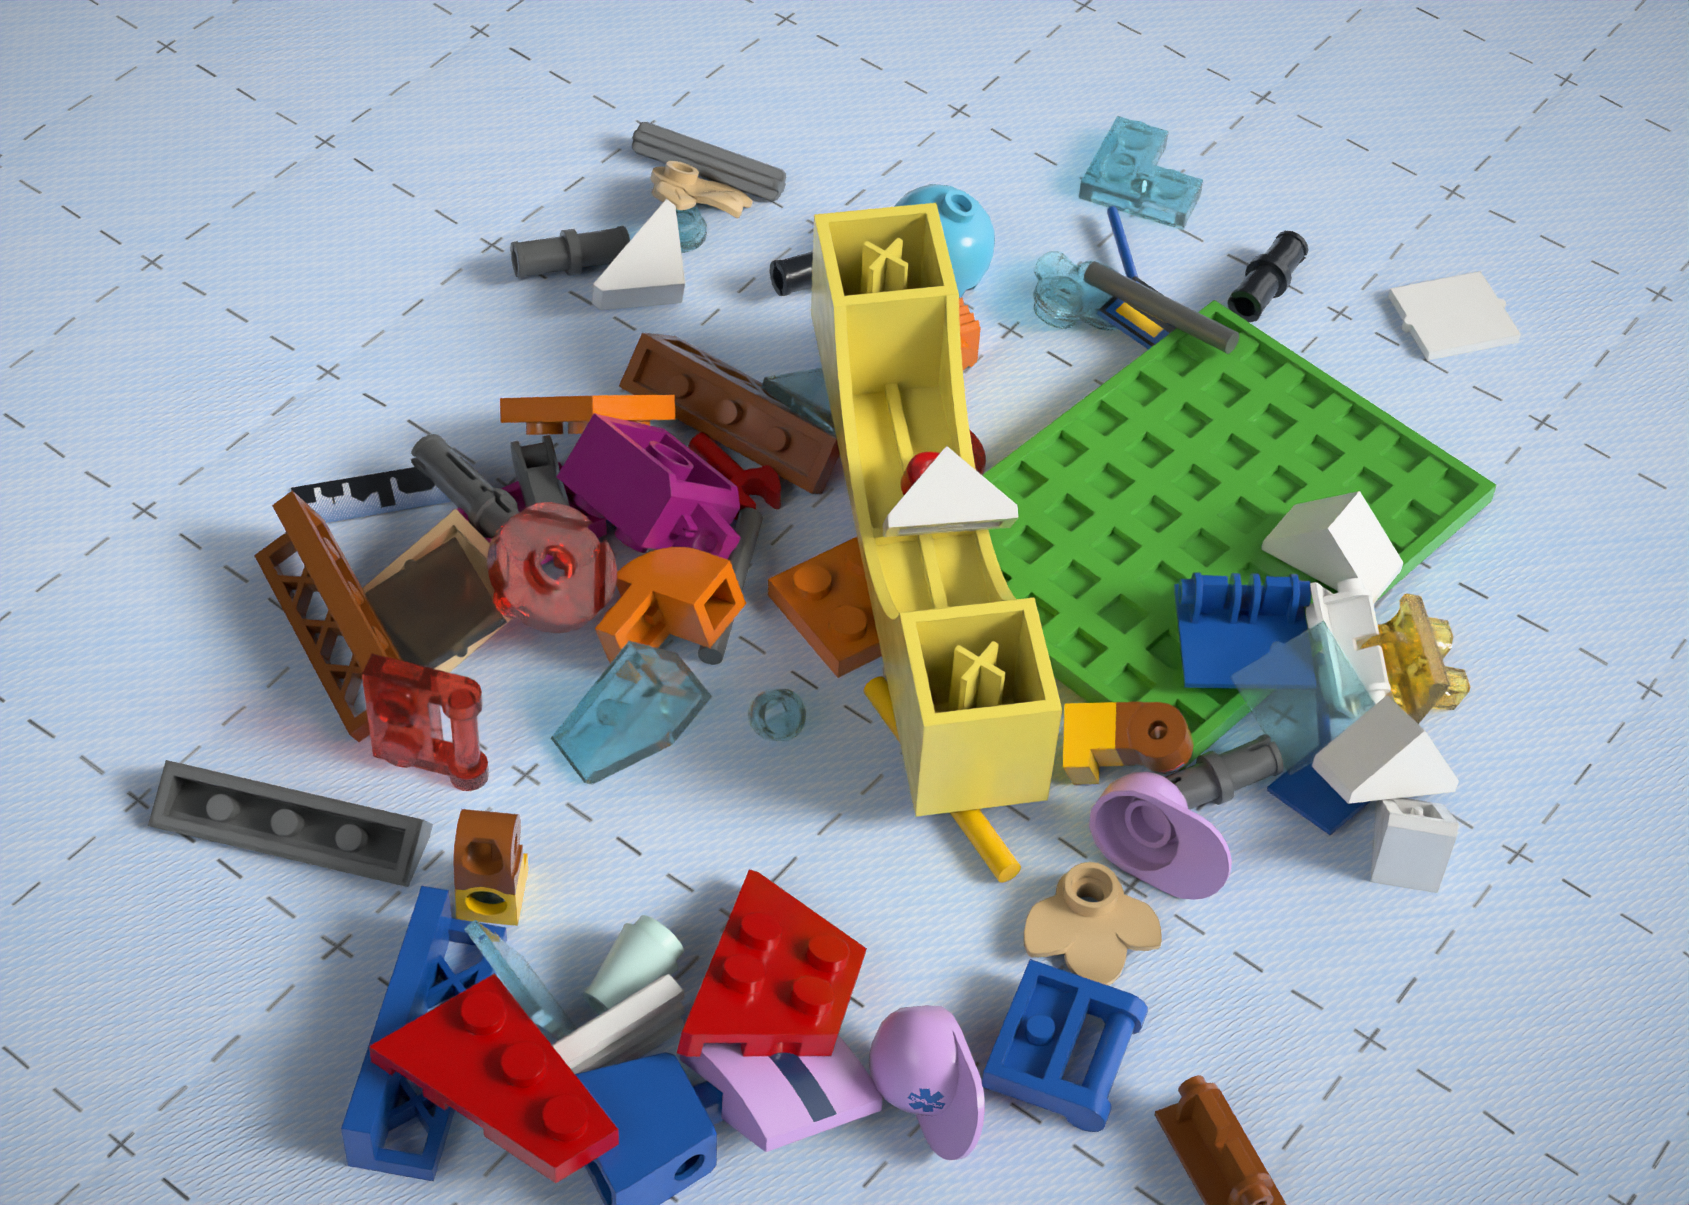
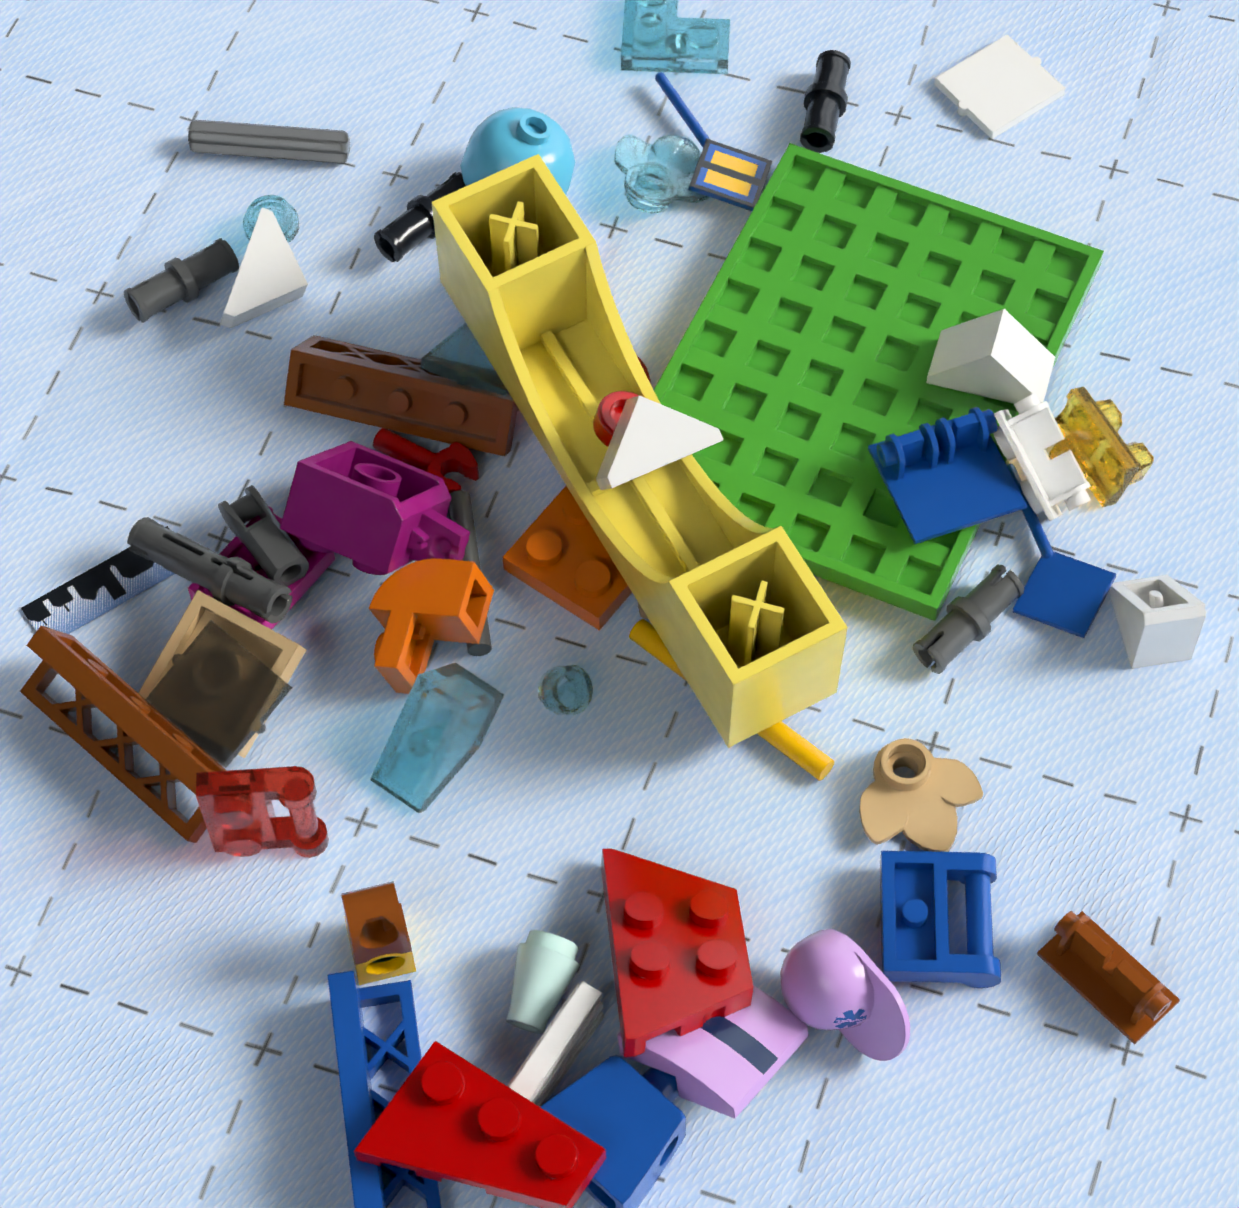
camera: 15 degrees left, 10 degrees up
(289, 823) = (169, 947): dark grey slope -> none
(521, 981) = (458, 1035): clear light blue piece -> none
(527, 591) = (291, 645): clear red plate -> none
(547, 414) = (274, 449): orange plate -> none
(684, 189) = (264, 182): tan plate -> none
(1123, 736) = (886, 606): leg -> none
(1153, 835) = (937, 694): lavender cap -> none
(1161, 307) = (747, 167): dark grey bar -> none
(1303, 694) = (1024, 519): clear light blue piece -> none
(1384, 758) = (1108, 556): white slope -> none

